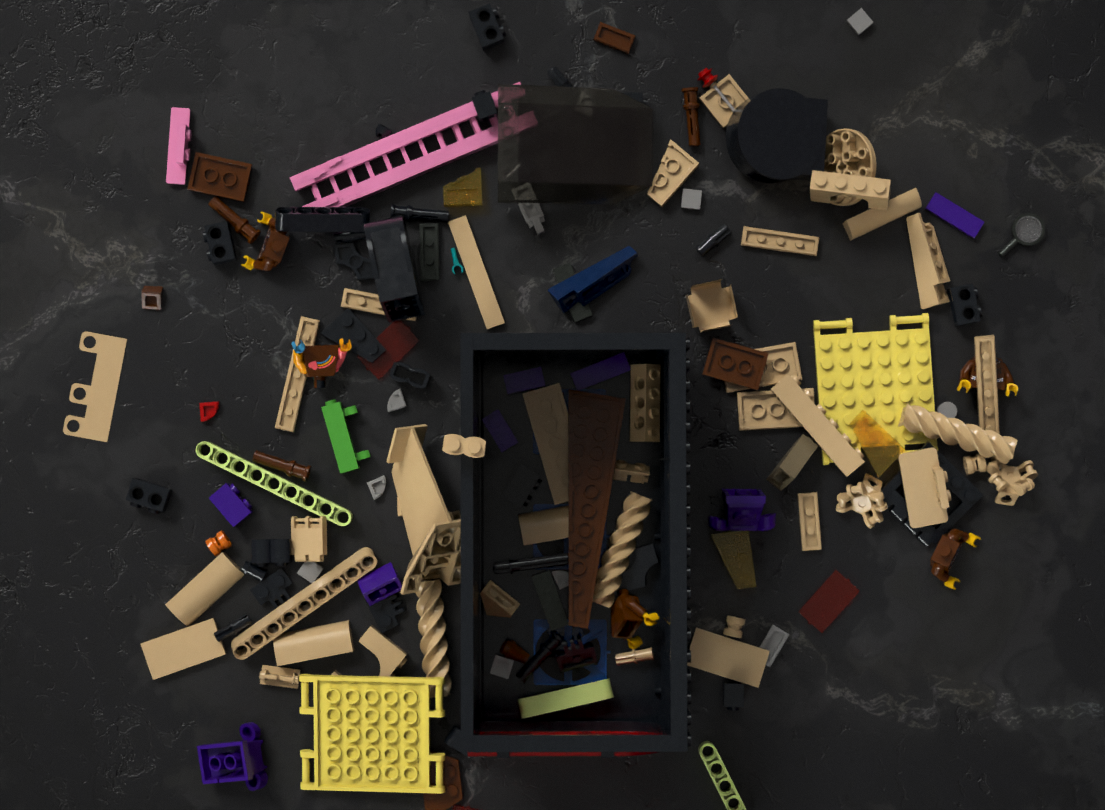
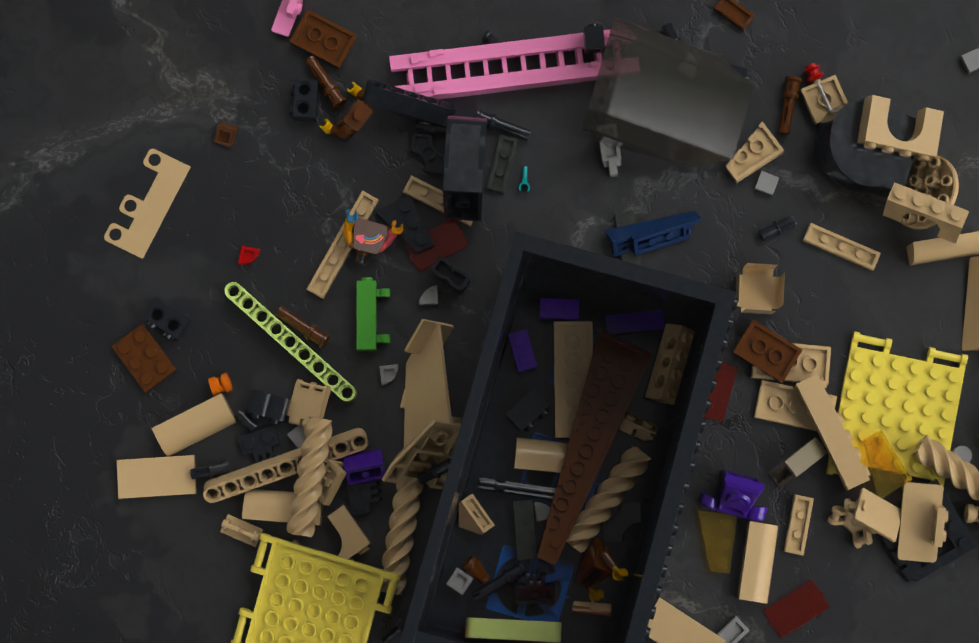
camera: 20 degrees right, 5 degrees down
(137, 538) = (144, 358): none -> reddish brown plate
(231, 504) = (243, 350): dark purple brick -> none
(235, 760) = (174, 598): dark purple piece -> none
(330, 604) = (310, 472): none -> tan piece
(350, 608) = (331, 481): none -> tan bracket
(449, 570) = (434, 472): none -> black axle
(458, 445) = (482, 338): tan brick -> none
(464, 191) = (551, 116): clear yellow wing -> none
(476, 272) = (541, 189): tan tile -> none
(699, 414) = (722, 392): none -> clear red piece
(734, 625) = (698, 605): tan wheel -> none
(779, 568) = (757, 562): none -> tan brick
(781, 125) = (876, 134): none -> tan arch
(881, 492) = (877, 514): none -> tan container
(947, 552) = (926, 593): reddish brown torso -> none

